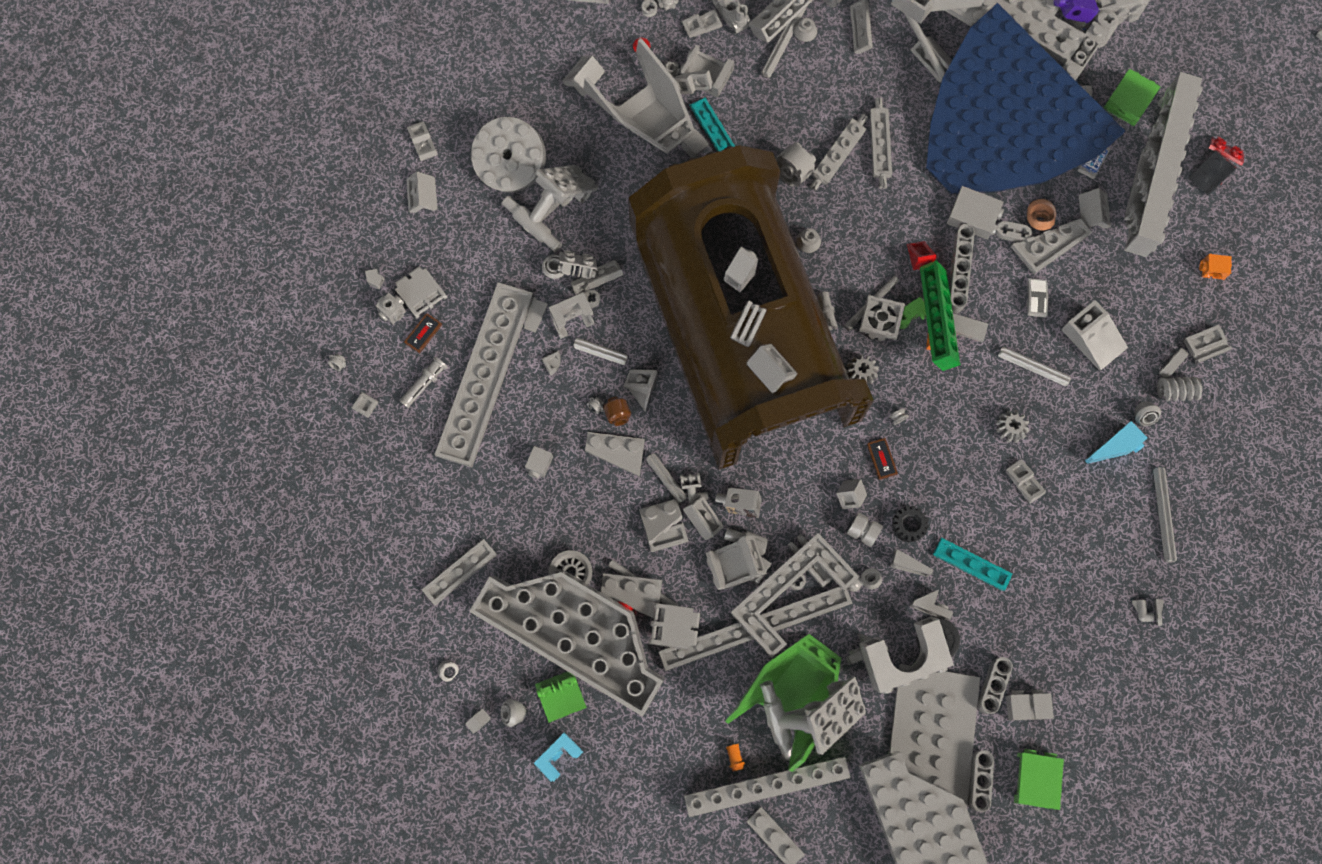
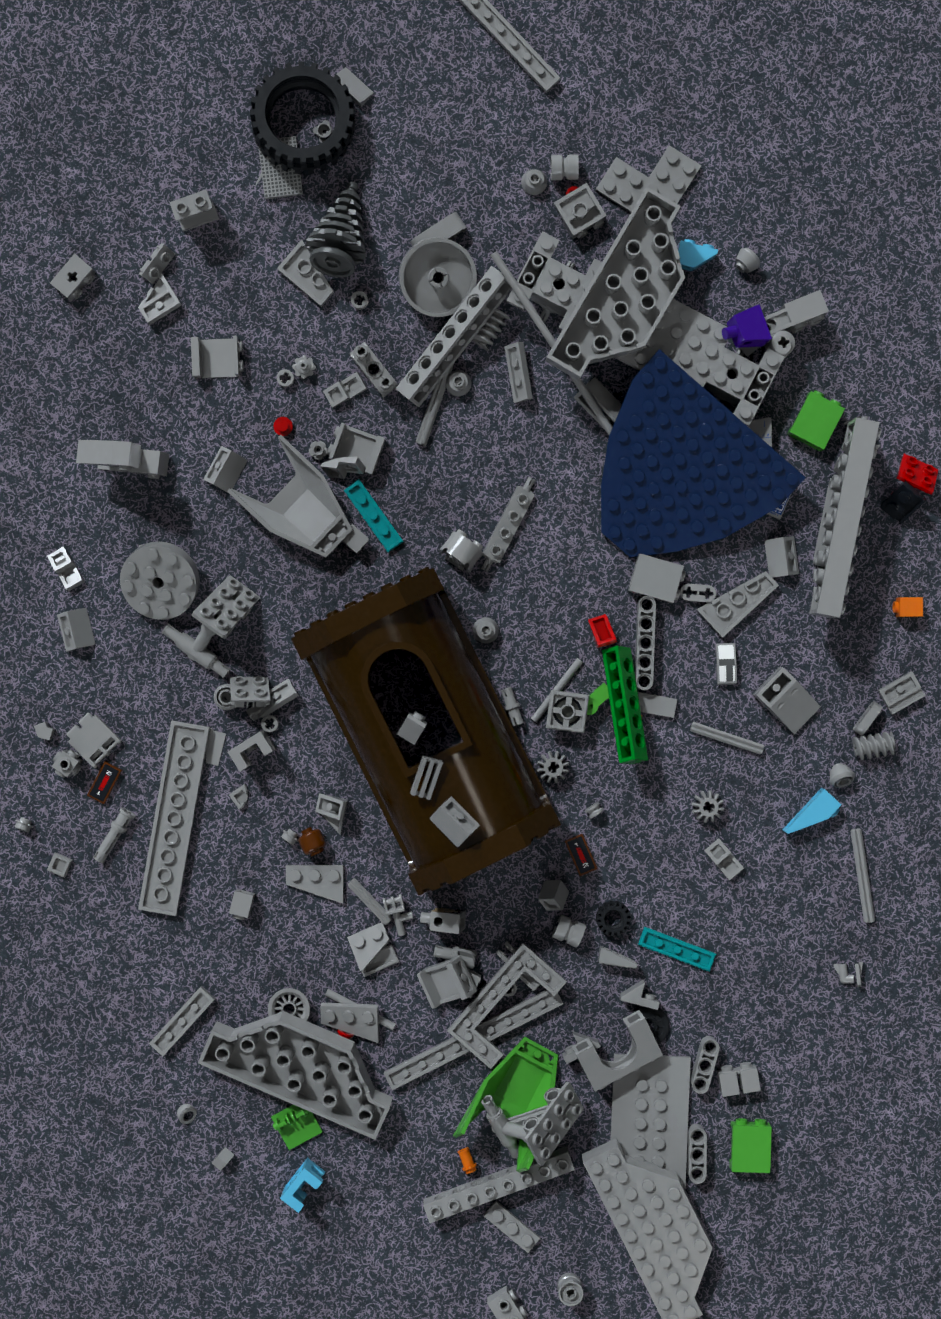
camera: 10 degrees left, 15 degrees up
(490, 43) = (122, 457): none -> light grey wedge
(512, 712) = (254, 1147): light grey cone -> none
(600, 351) = (286, 778): light grey axle -> none
(674, 626) = (395, 1050): light grey plate -> none
(703, 518) = (411, 937): light grey slope -> none
(866, 576) = (574, 978): light grey plate -> none
(880, 143) = (551, 509): light grey plate -> none
(1044, 209) = (725, 562): nougat hat -> none

